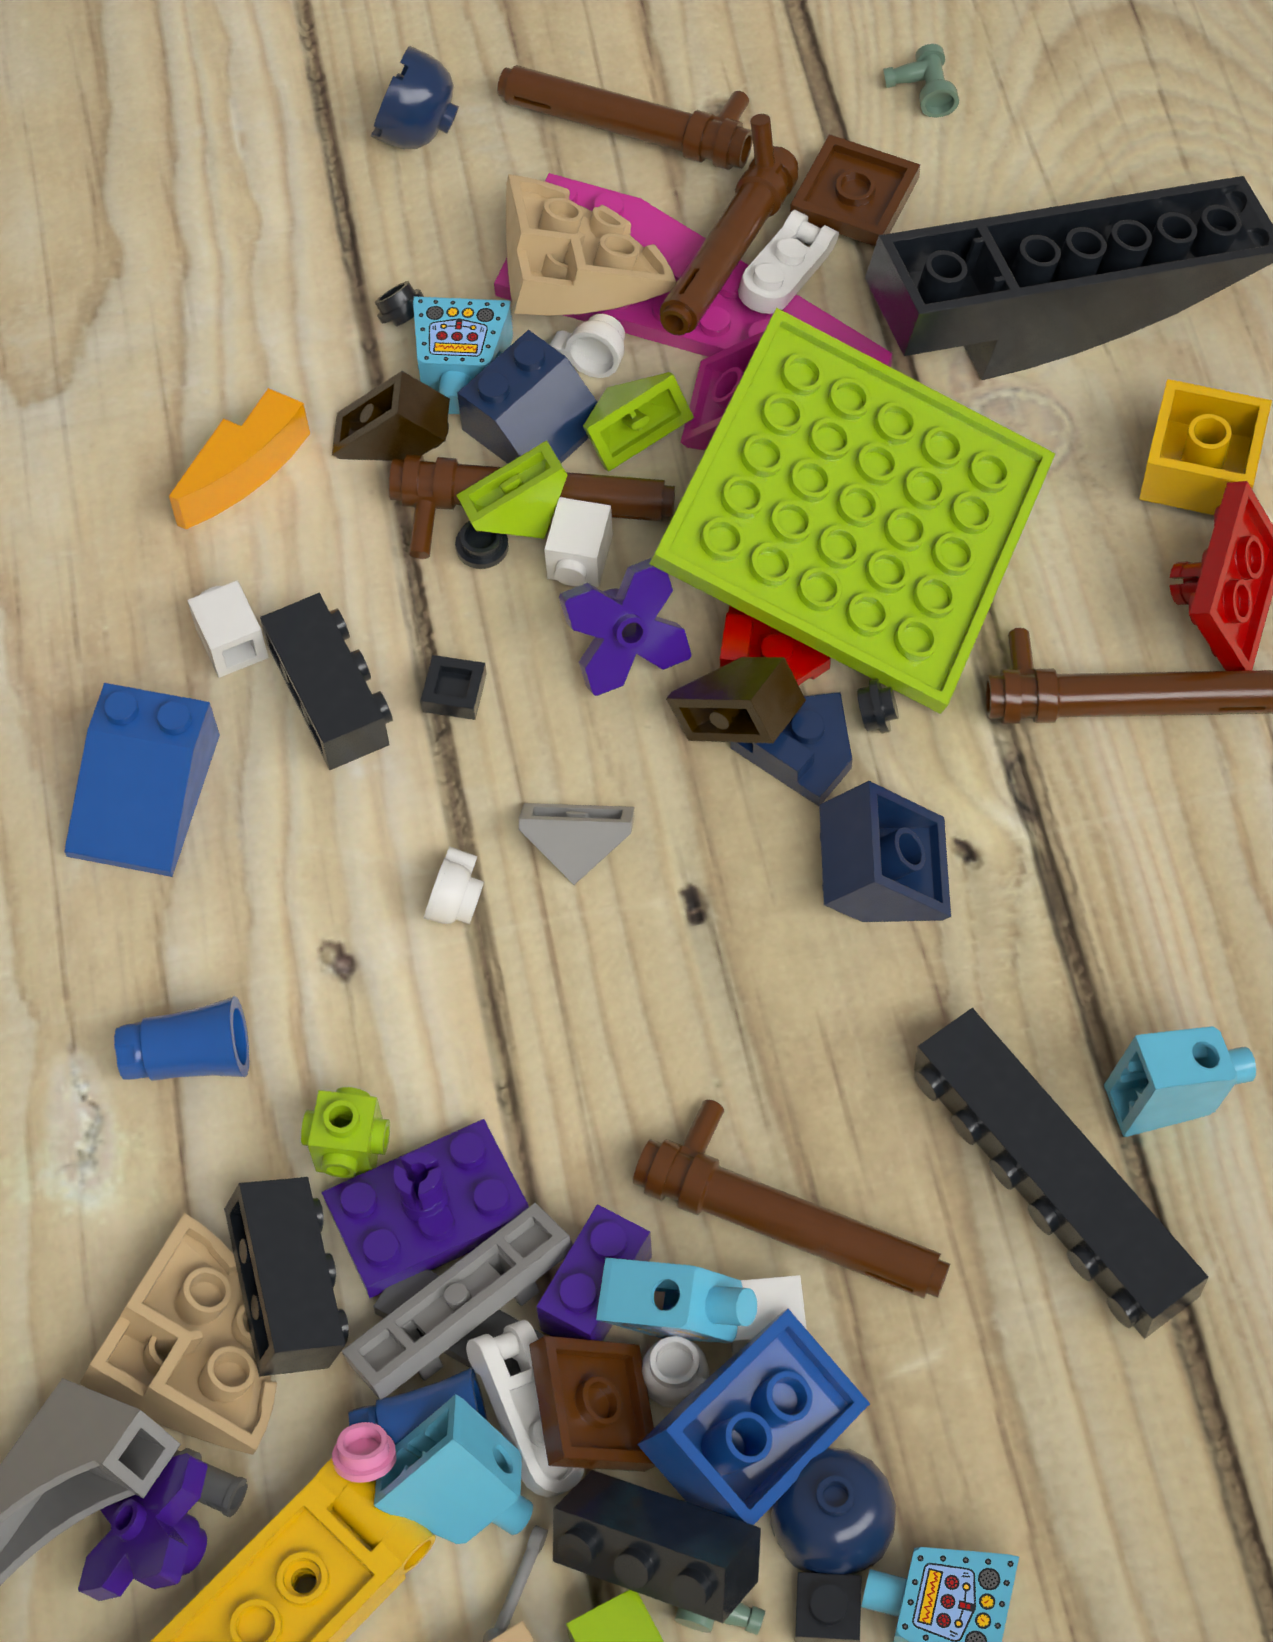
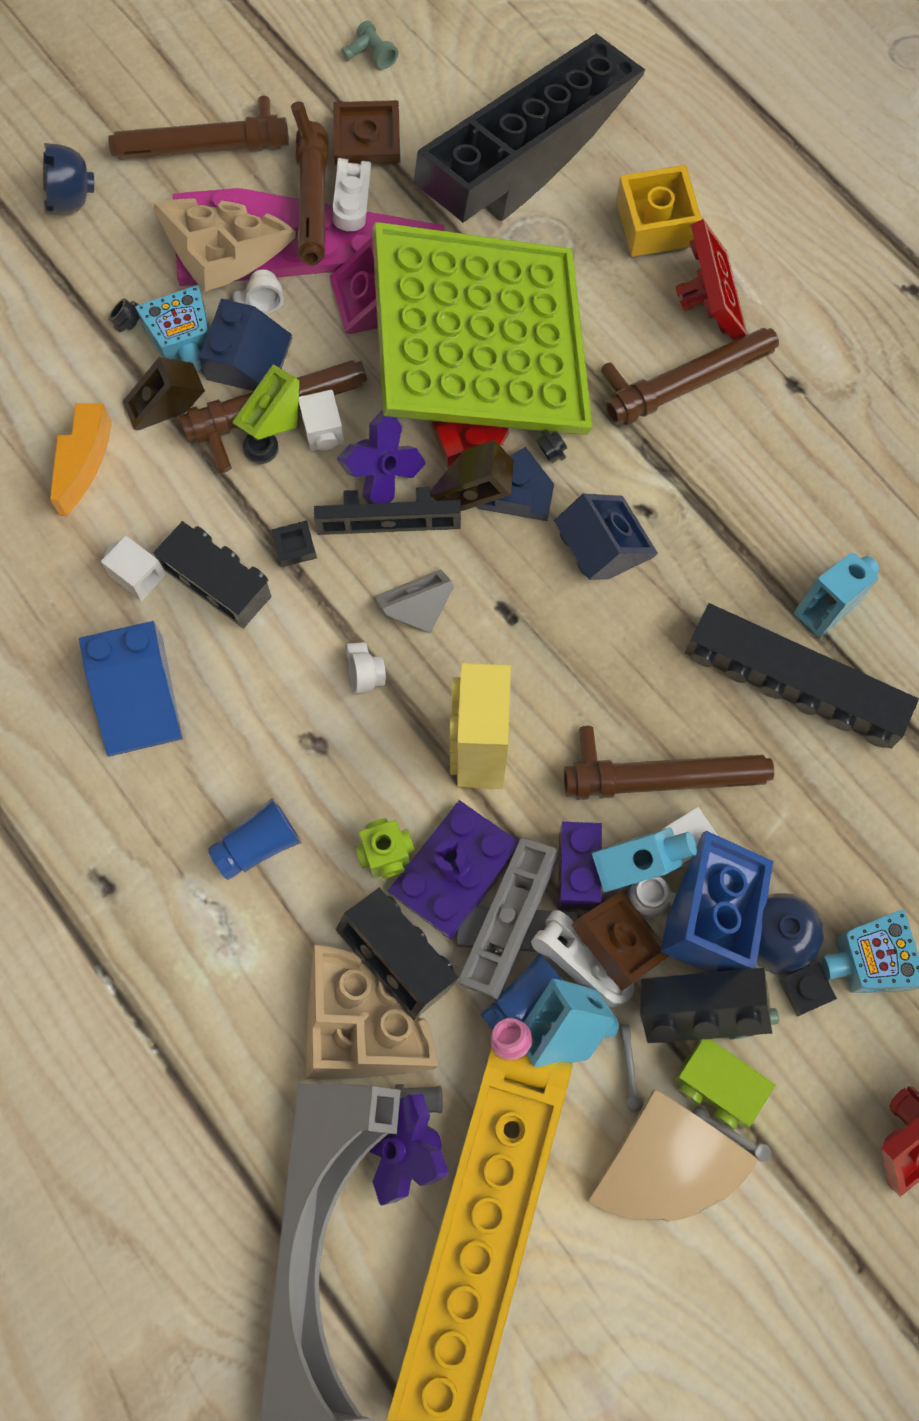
camera: 30 degrees left, 10 degrees up
(546, 1020) = (480, 725): none -> light yellow brick
(559, 691) = (387, 517): none -> black hinge
(635, 417) = (312, 326): lime slope -> none

